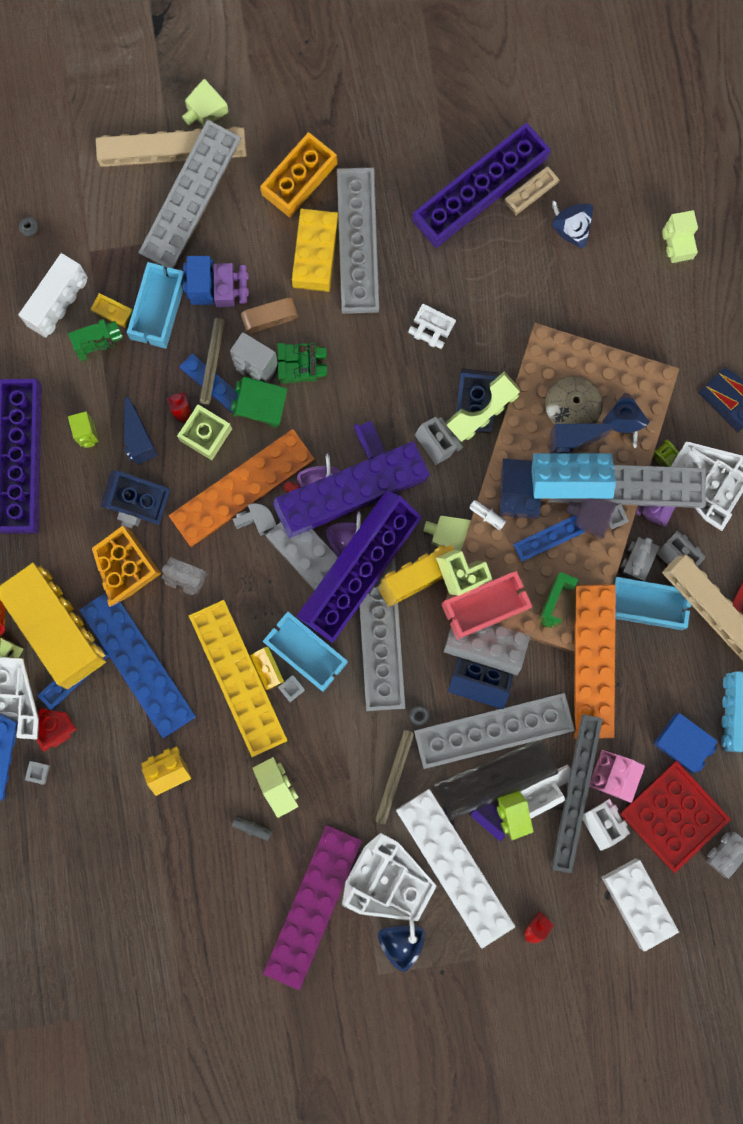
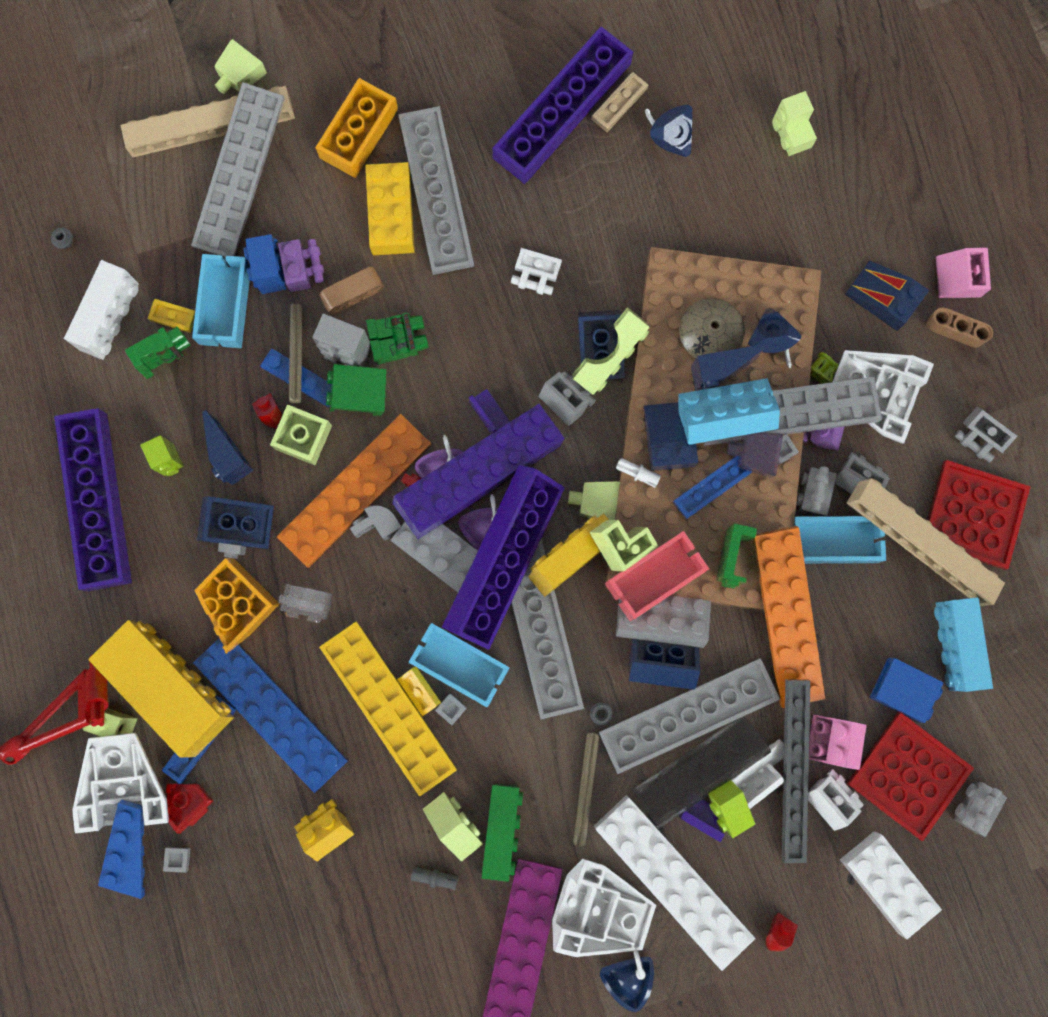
camera: 10 degrees left, 0 degrees up
(315, 800) = (500, 832): none -> green brick

